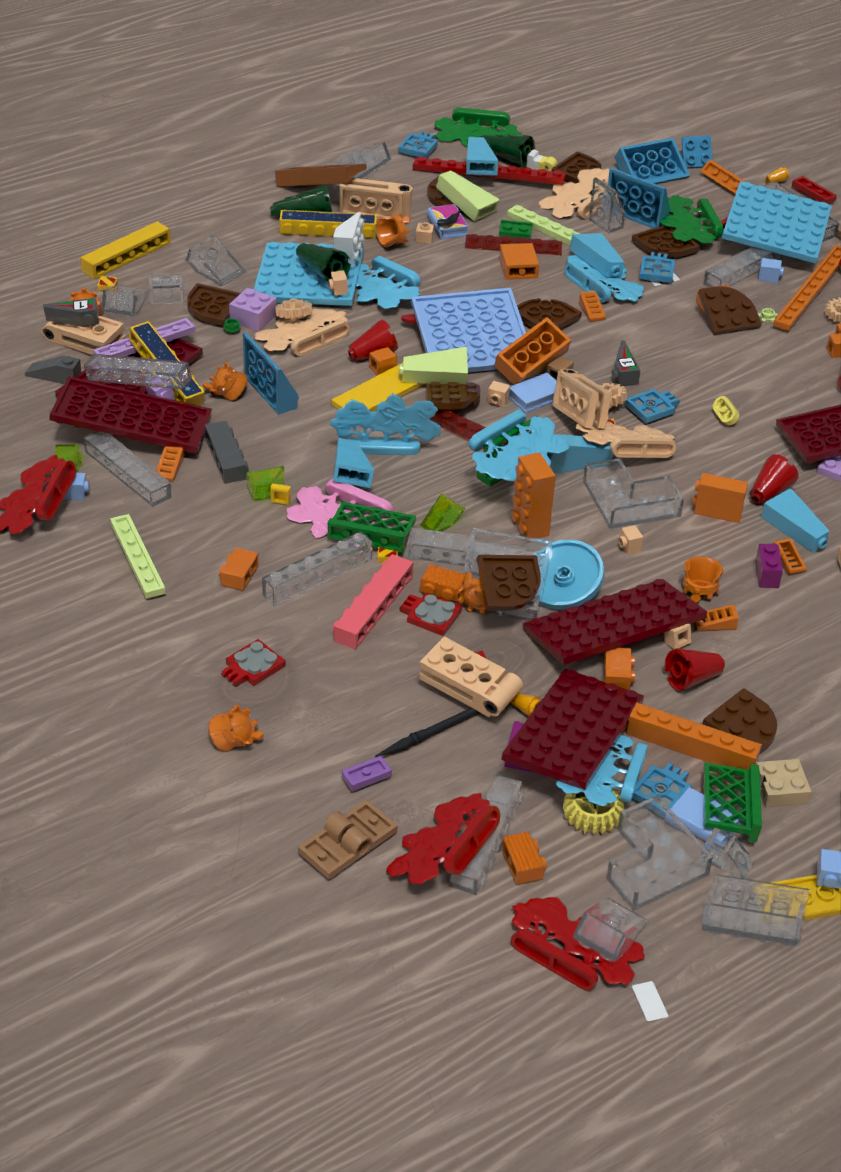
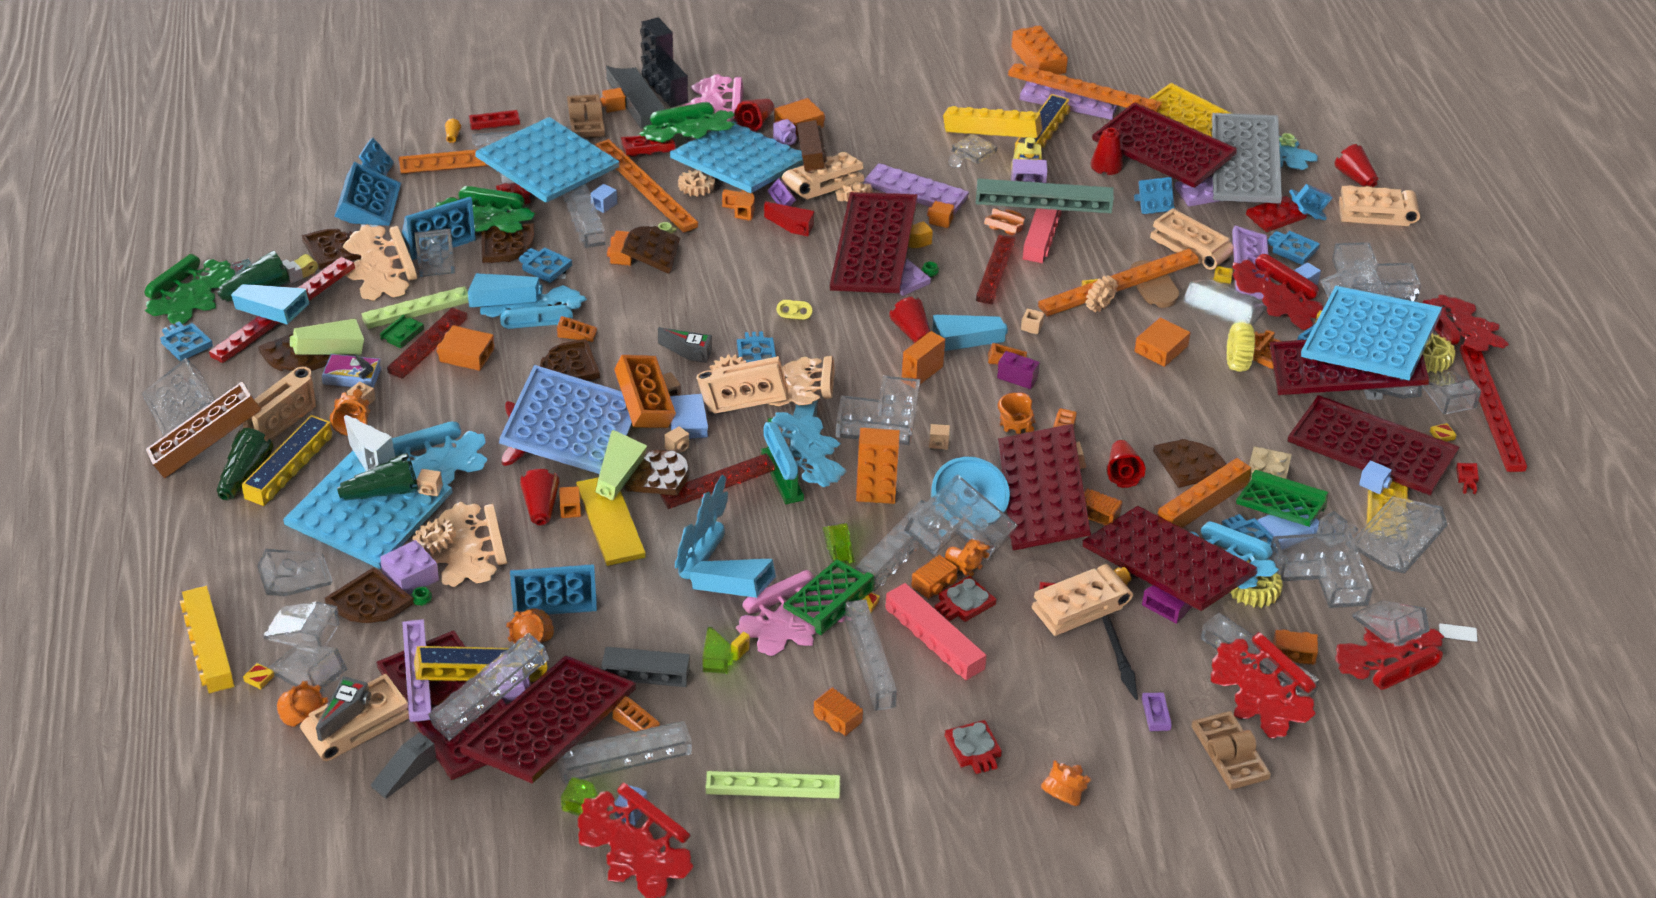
camera: 65 degrees left, 0 degrees up
(508, 580) = (987, 523): reddish brown plate -> none

